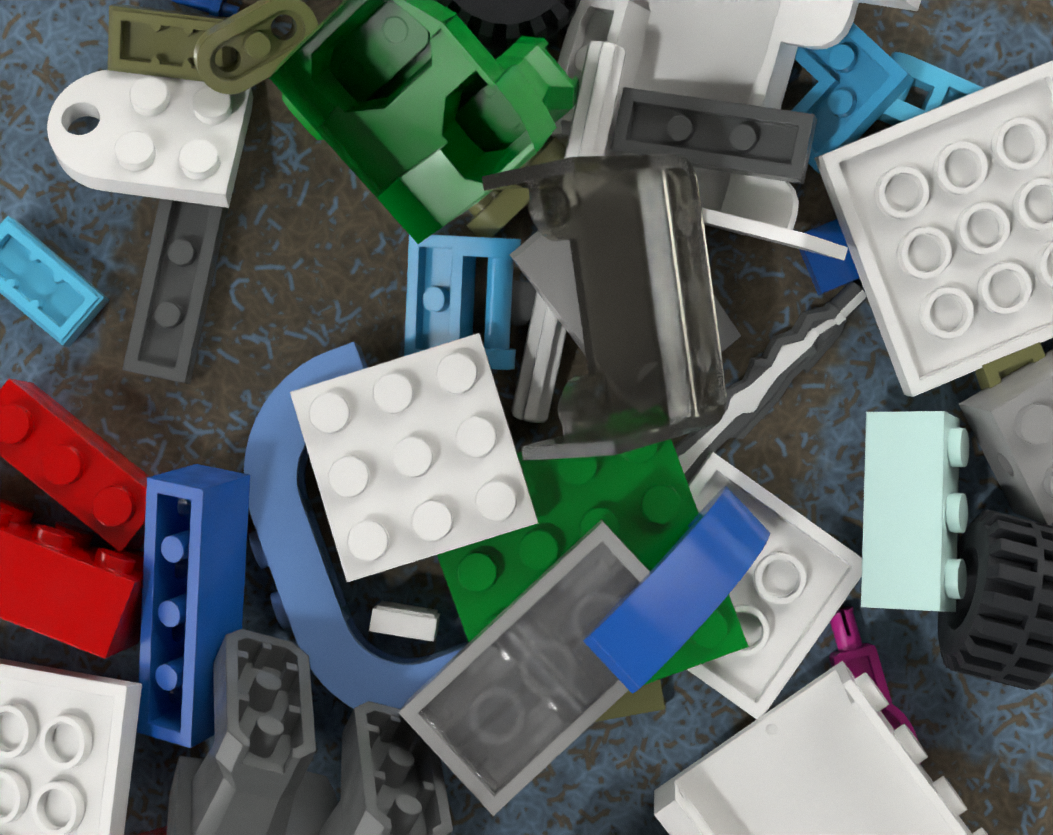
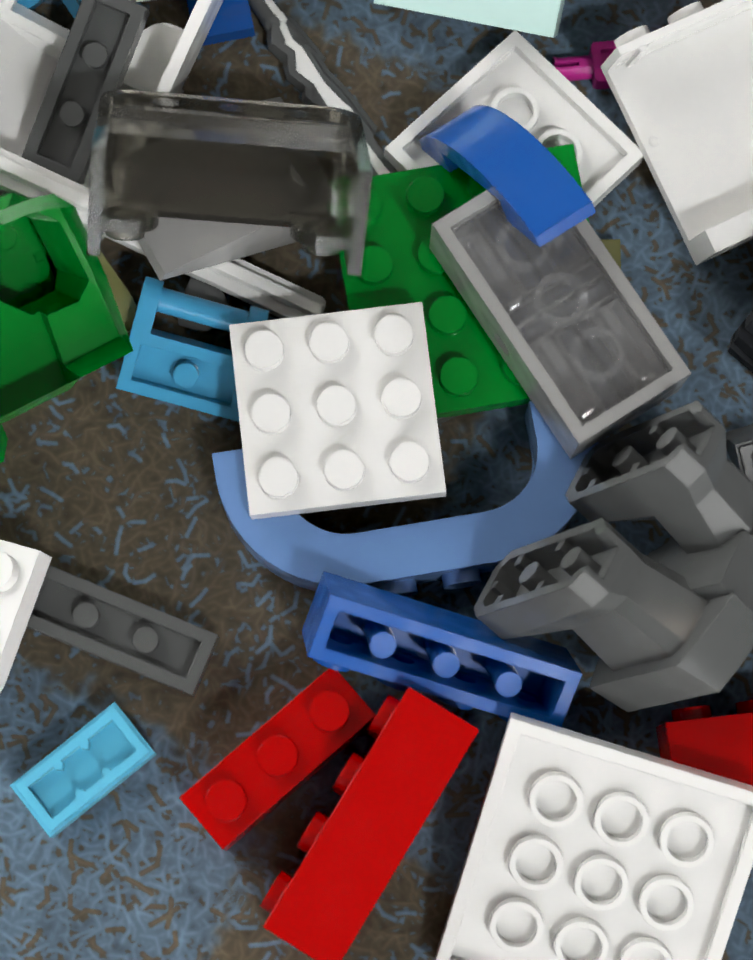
camera: 85 degrees left, 10 degrees down
(405, 621) = (493, 462): white tile -> none

